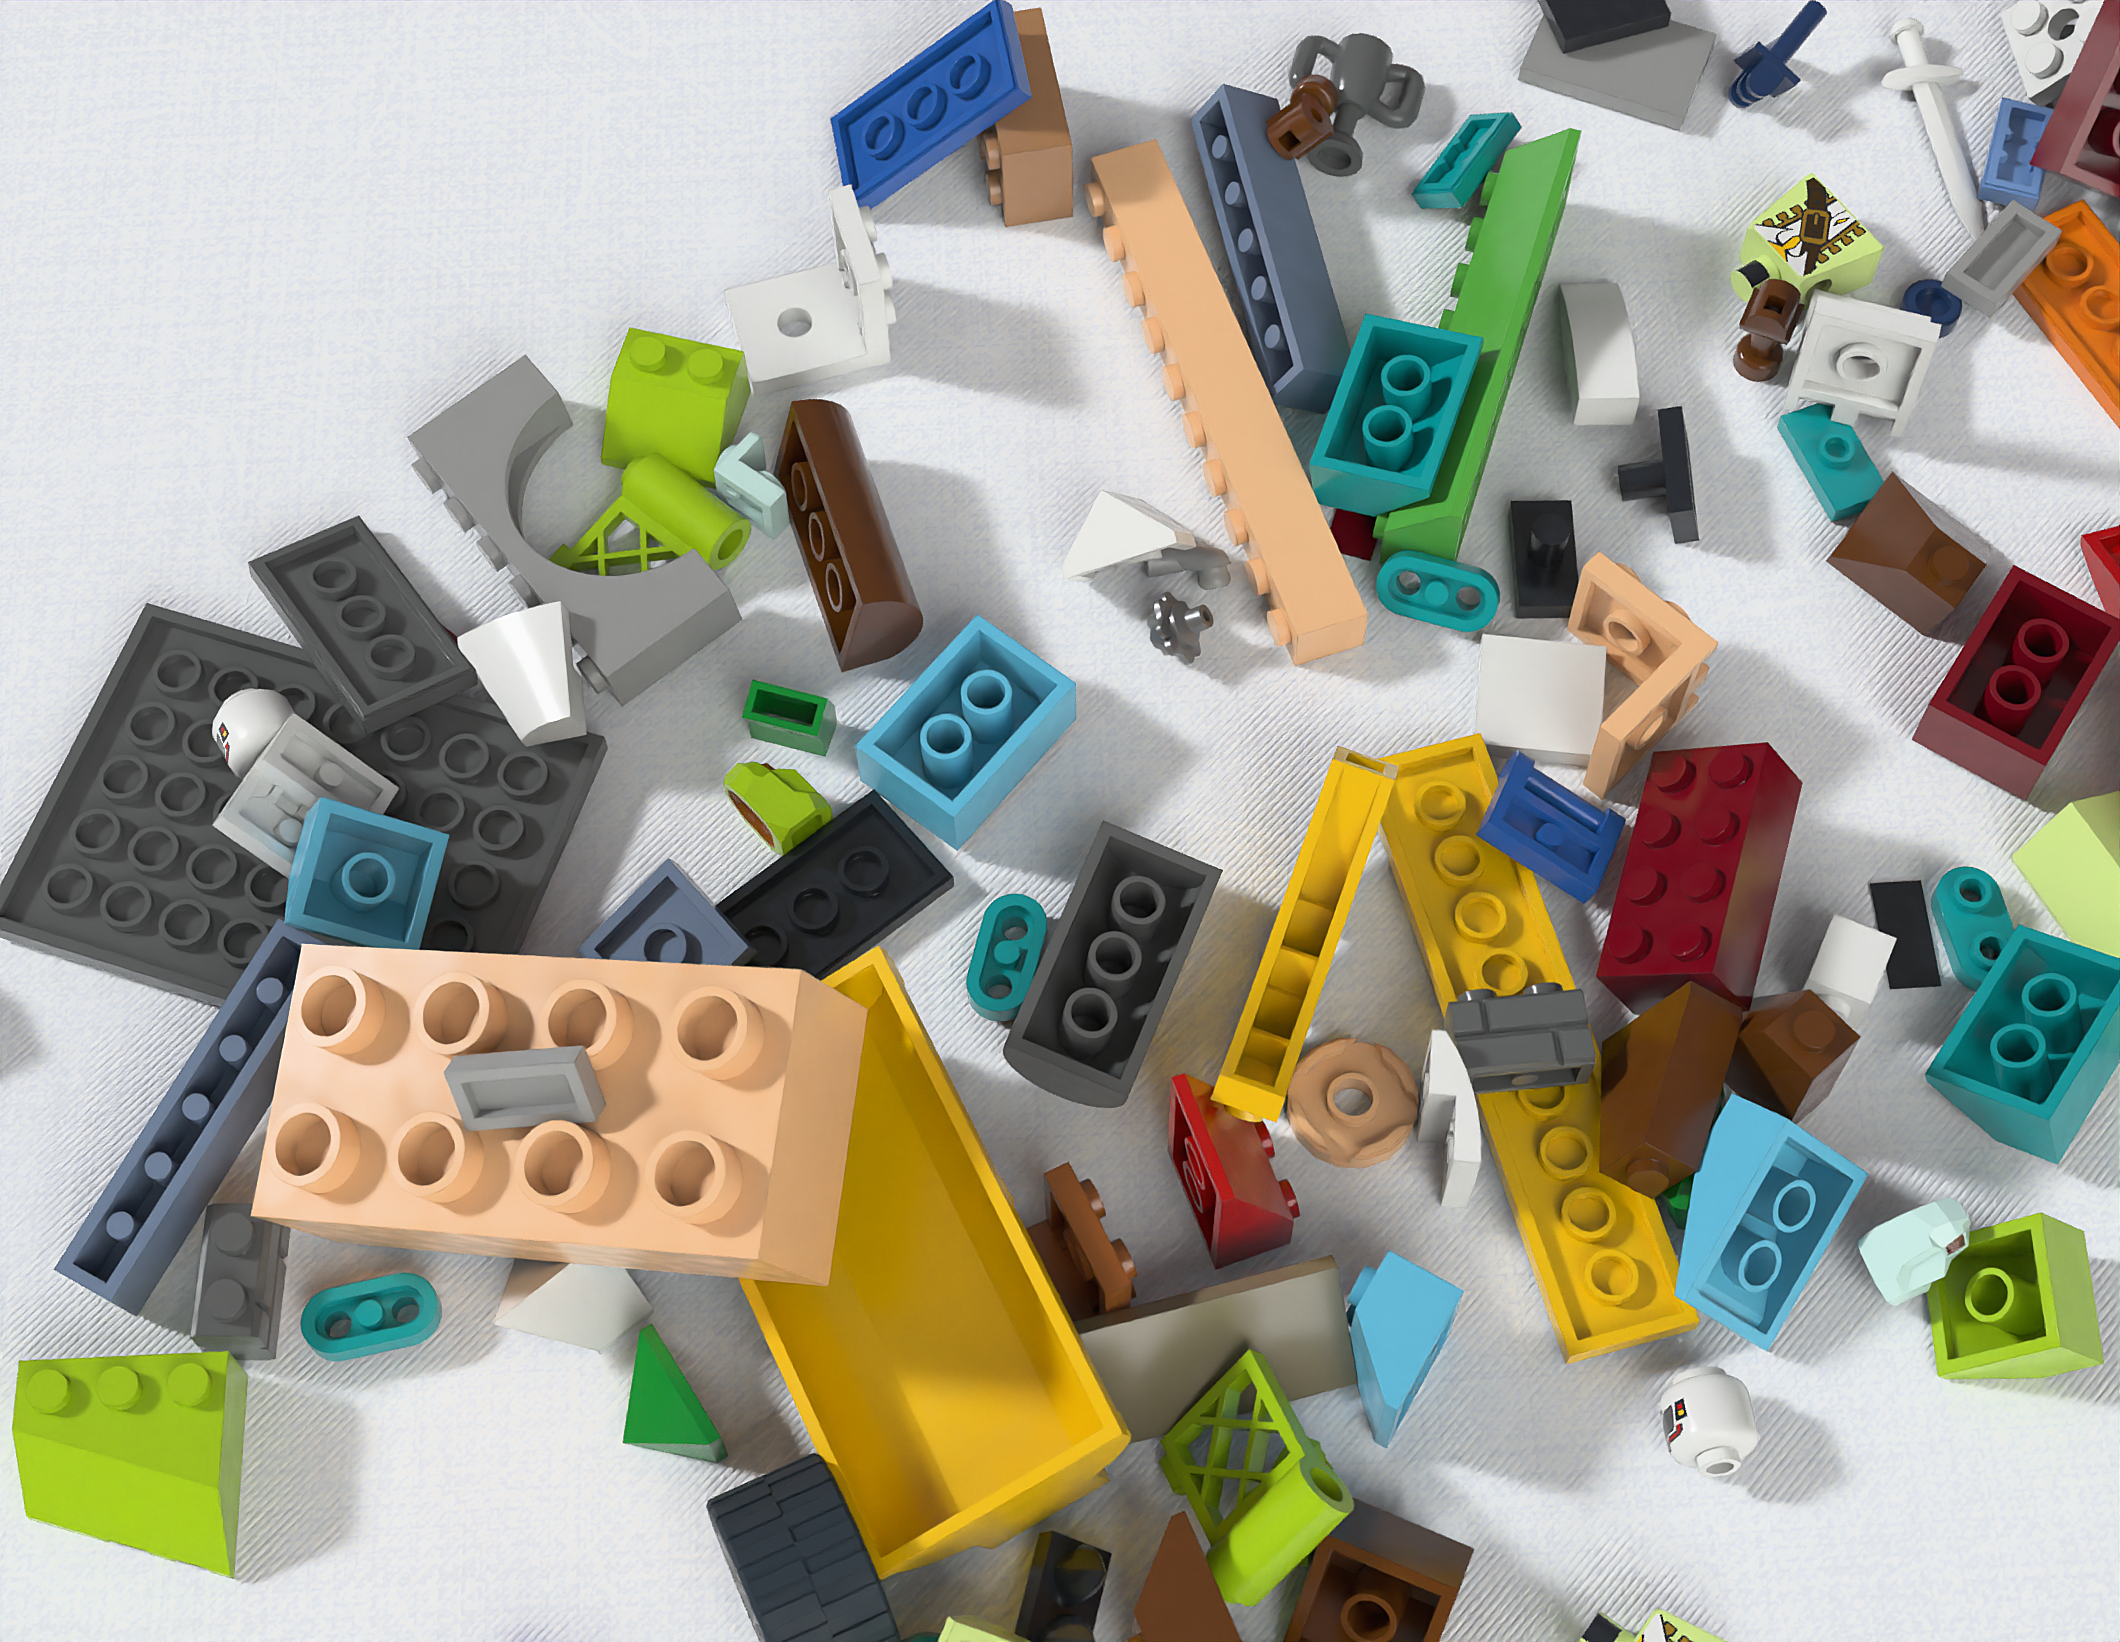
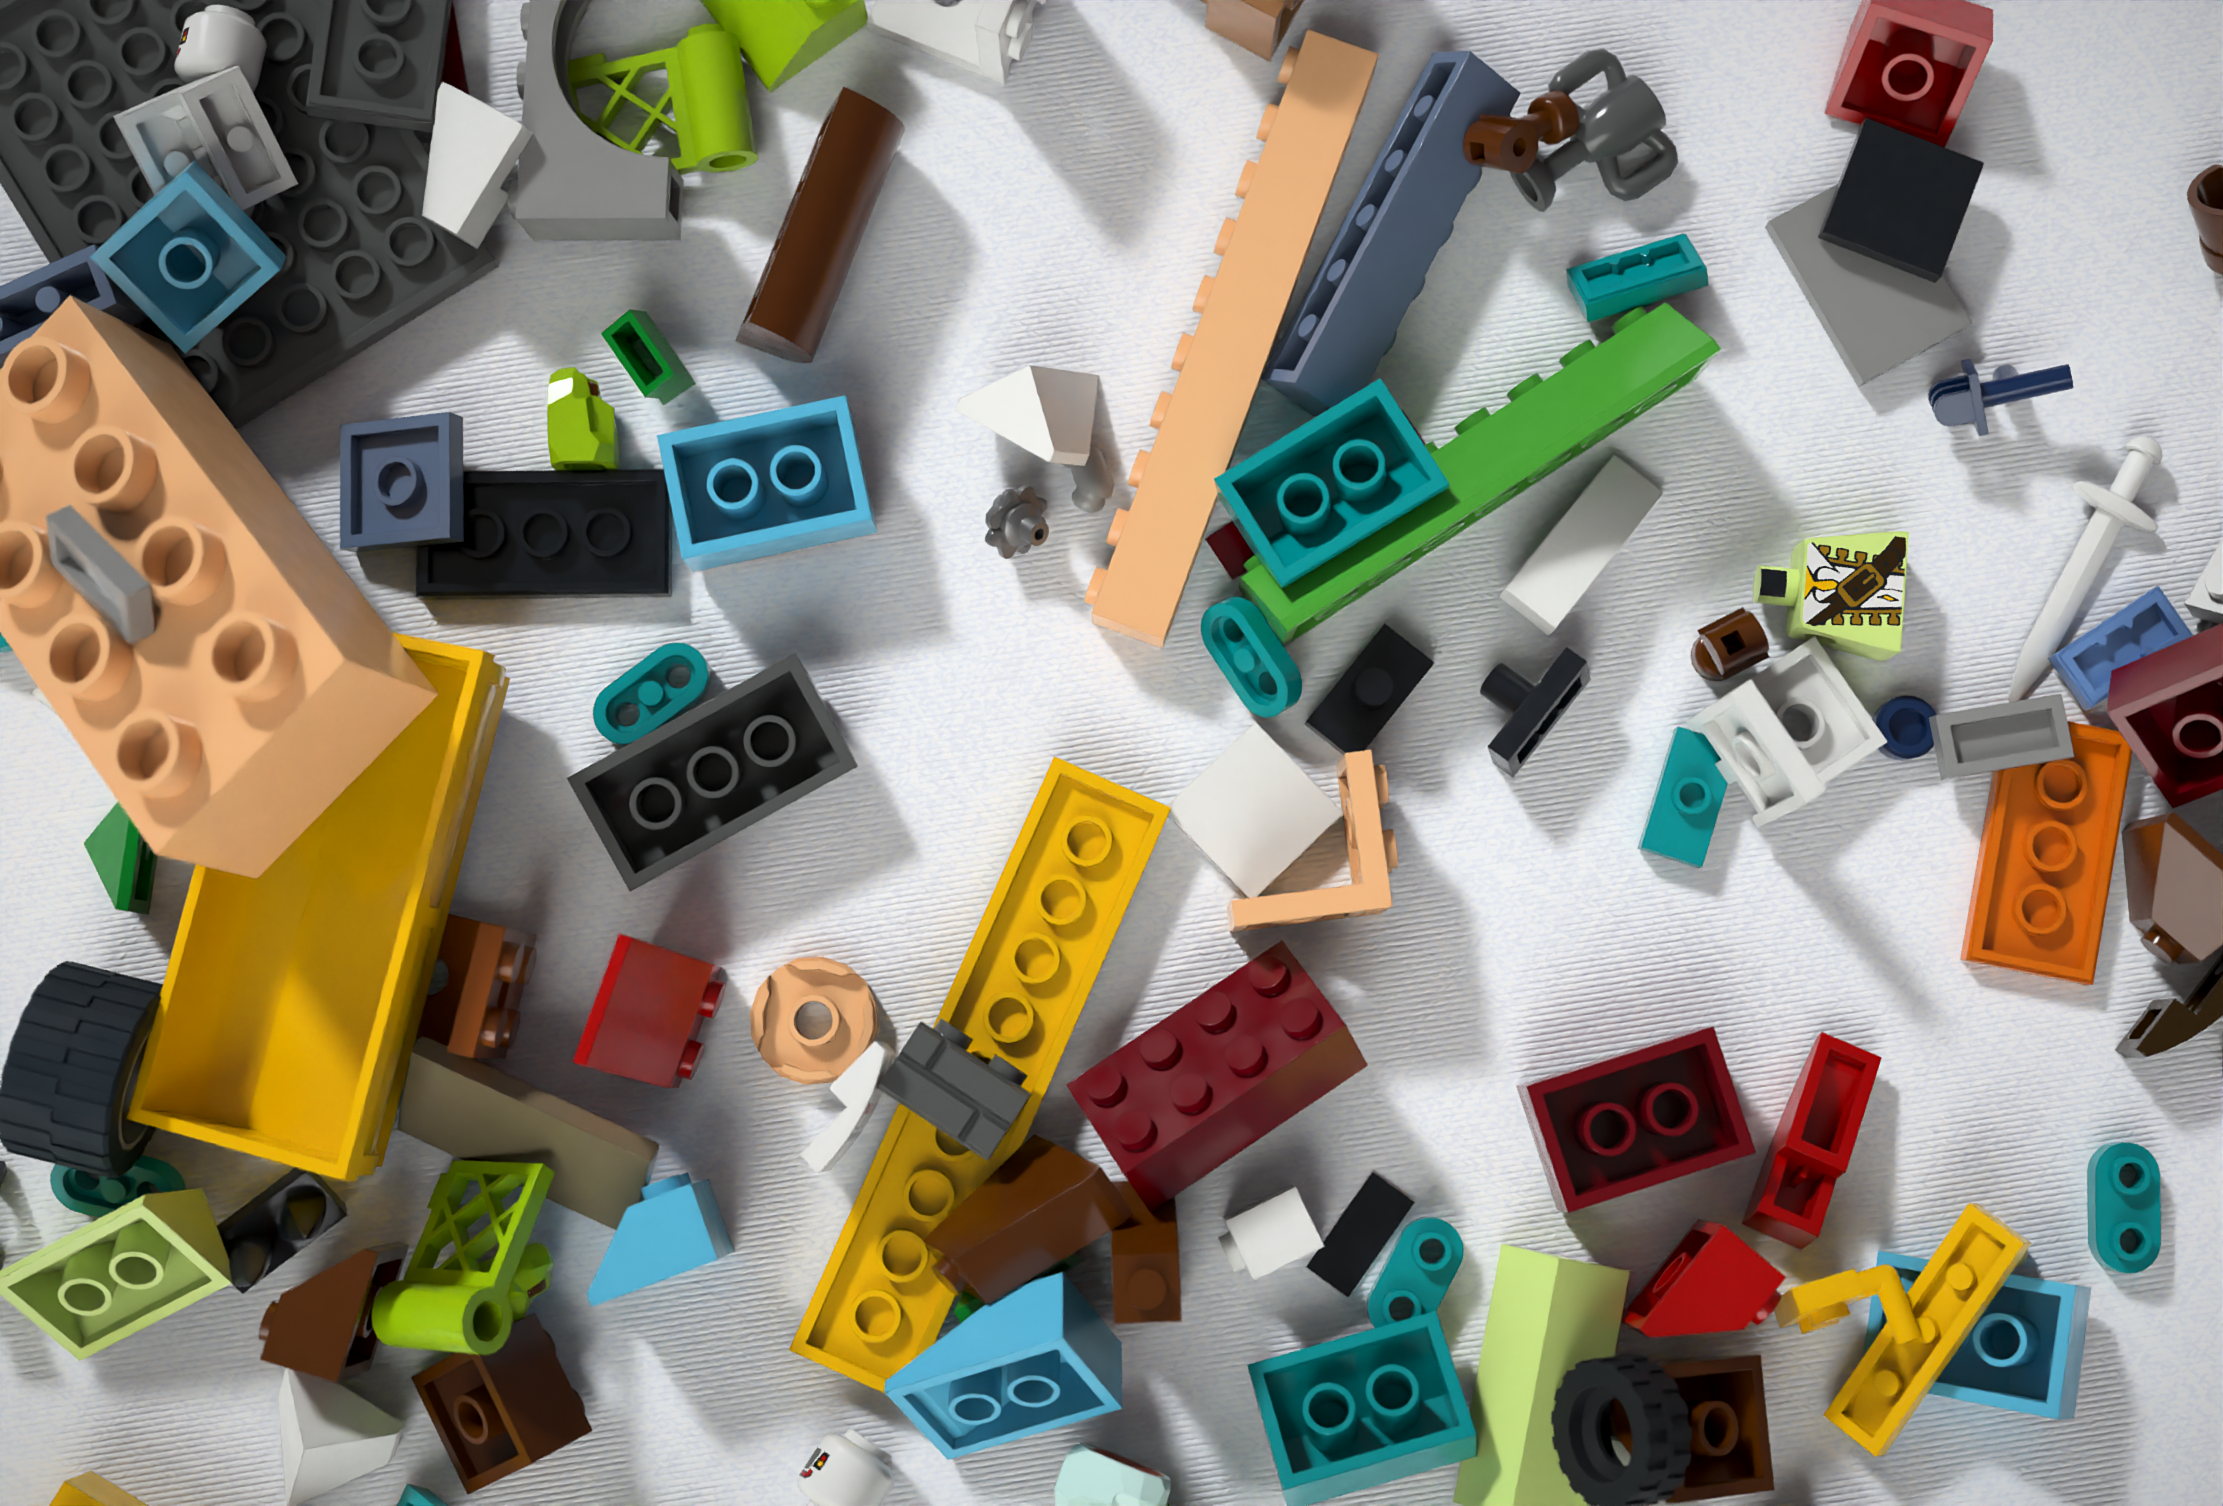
camera: 40 degrees right, 20 degrees up
(749, 488) = (785, 132): light aqua bracket -> none
(1304, 937) = (850, 884): yellow arch -> none
(1550, 828) = (1133, 941): blue plate -> none
(1910, 555) = (1667, 936): reddish brown slope -> none

